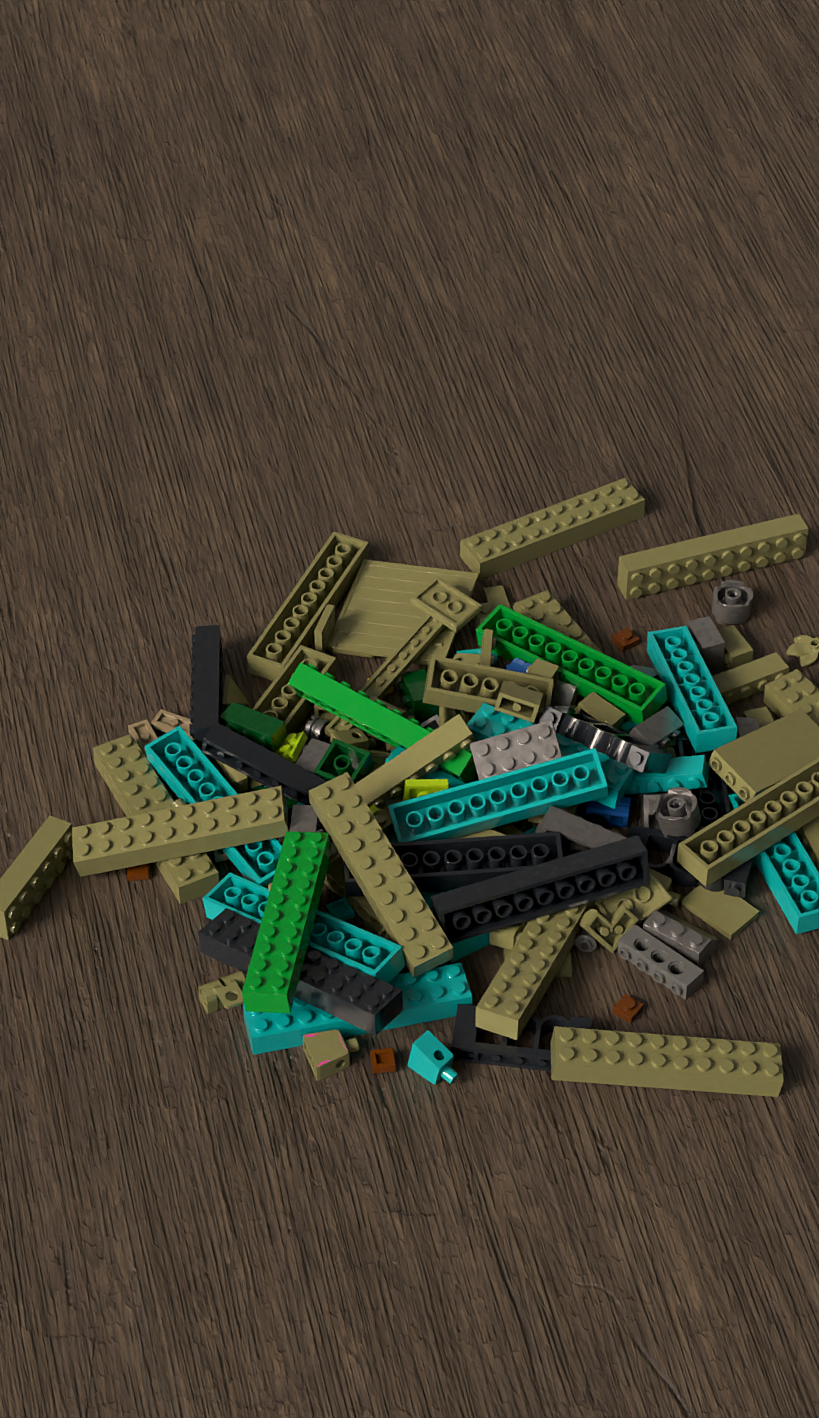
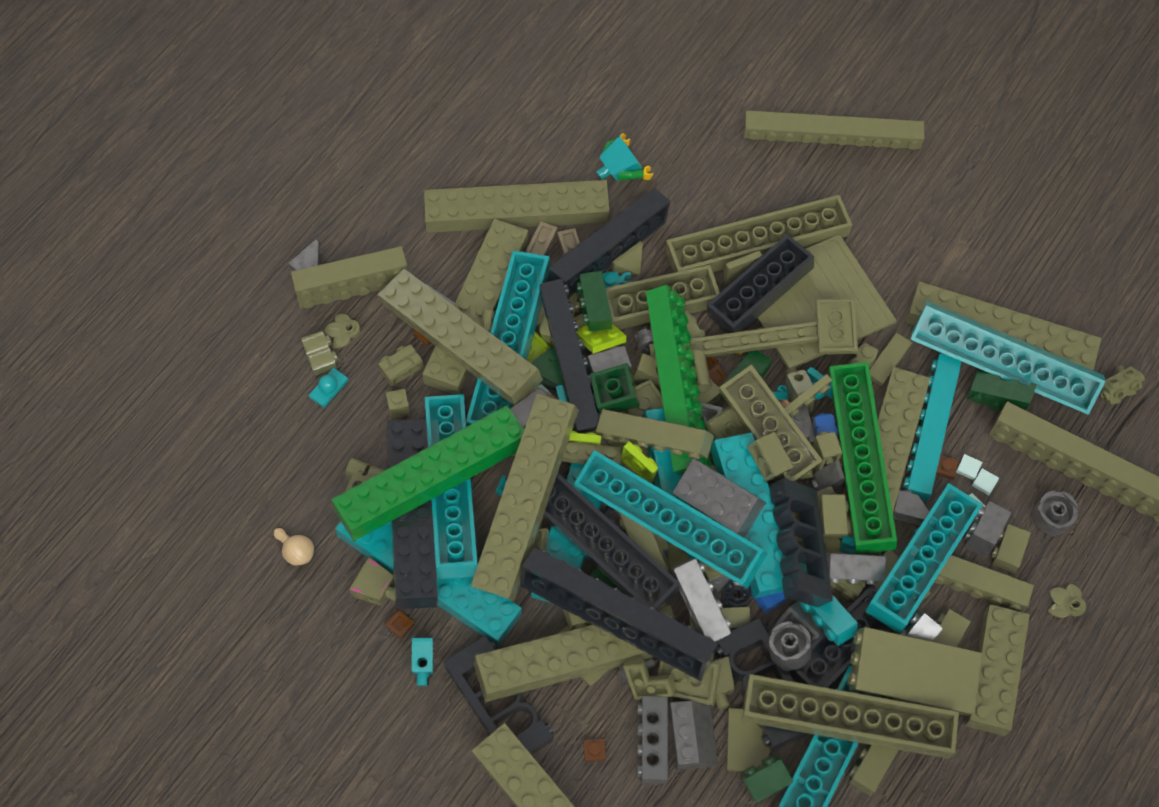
camera: 45 degrees right, 20 degrees up
(65, 924) = (339, 330): none -> olive plate
(70, 750) = (516, 204): none -> olive brick
(70, 950) = (319, 353): none -> olive brick
(109, 968) = (328, 387): none -> teal tile
(138, 640) = (621, 162): none -> teal torso
(148, 903) = (400, 365): none -> olive brick
(182, 927) = (398, 403): none -> olive brick
(234, 1086) = (295, 549): none -> tan hair
(267, 503) = (833, 129): none -> olive brick
(356, 627) = (760, 285): none -> black brick
(580, 535) = (1007, 357): none -> teal brick
(585, 615) = (933, 426): none -> teal brick
(602, 565) = (994, 392): none -> dark green wedge
(640, 626) = (969, 467): none -> light aqua tile
(661, 623) = (985, 481): none -> light aqua tile
(671, 497) = (1122, 385): none -> olive brick
(766, 907) = (766, 778): none -> dark green brick

